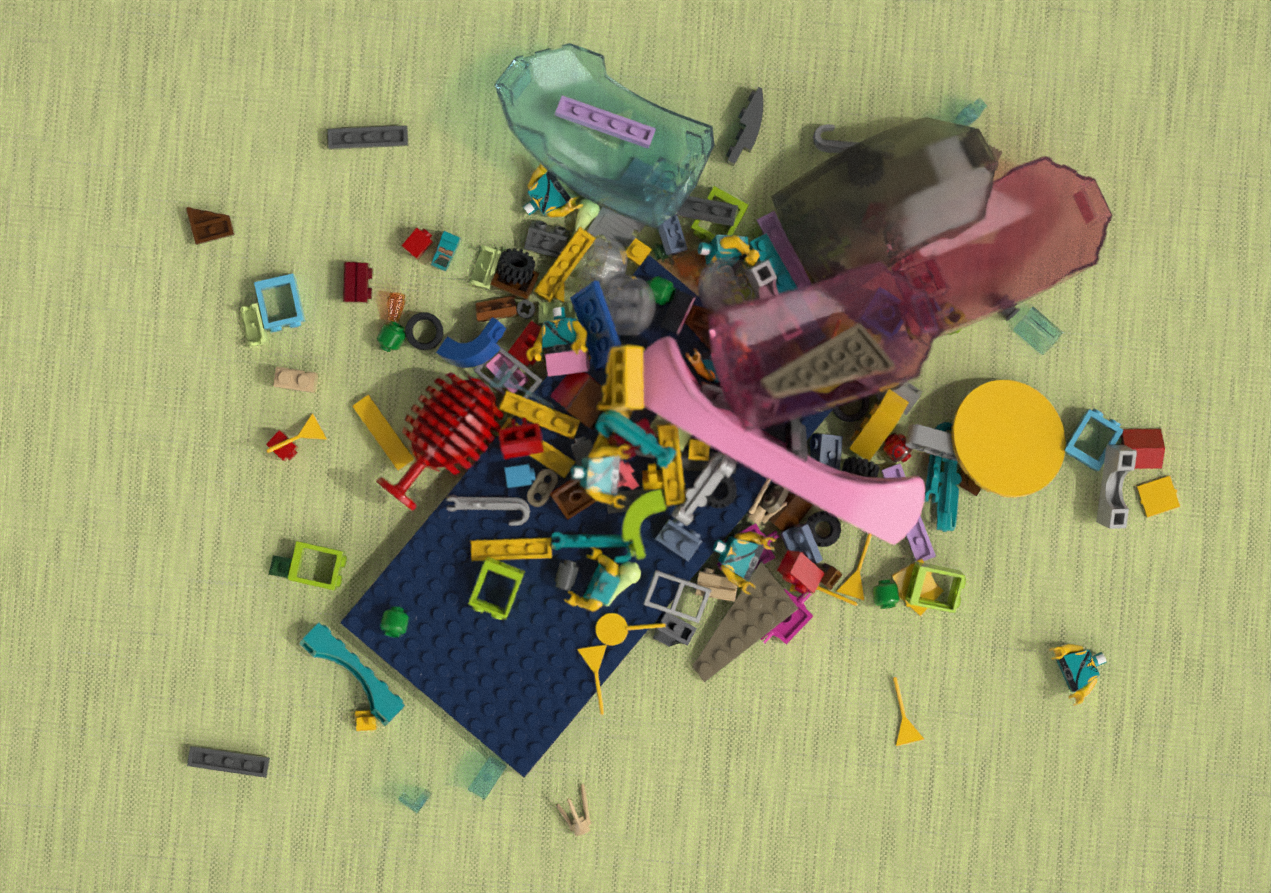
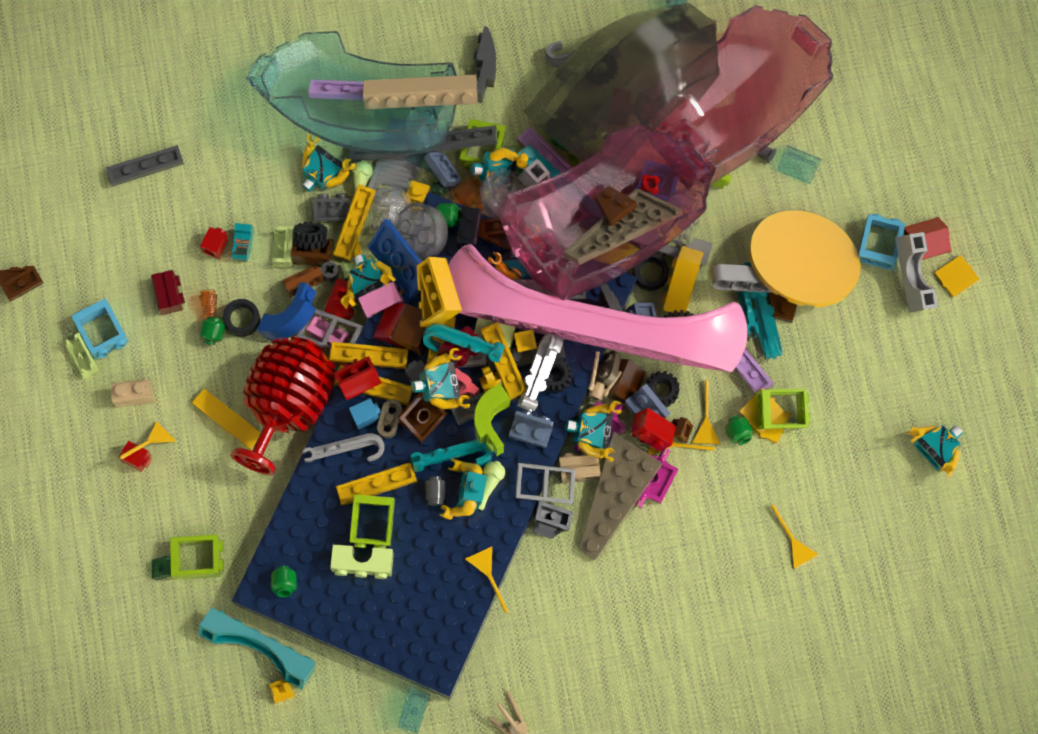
camera: 15 degrees left, 15 degrees down
(458, 620) = (379, 564): none -> yellowish green arch
(505, 379) = (329, 334): clear light blue piece -> none
(613, 628) = (494, 530): yellow piece -> none
(669, 150) = (420, 92): none -> tan brick
(830, 338) = (614, 204): none -> reddish brown wing
(876, 329) = (654, 180): none -> red plate
(896, 448) = (707, 297): red head -> none

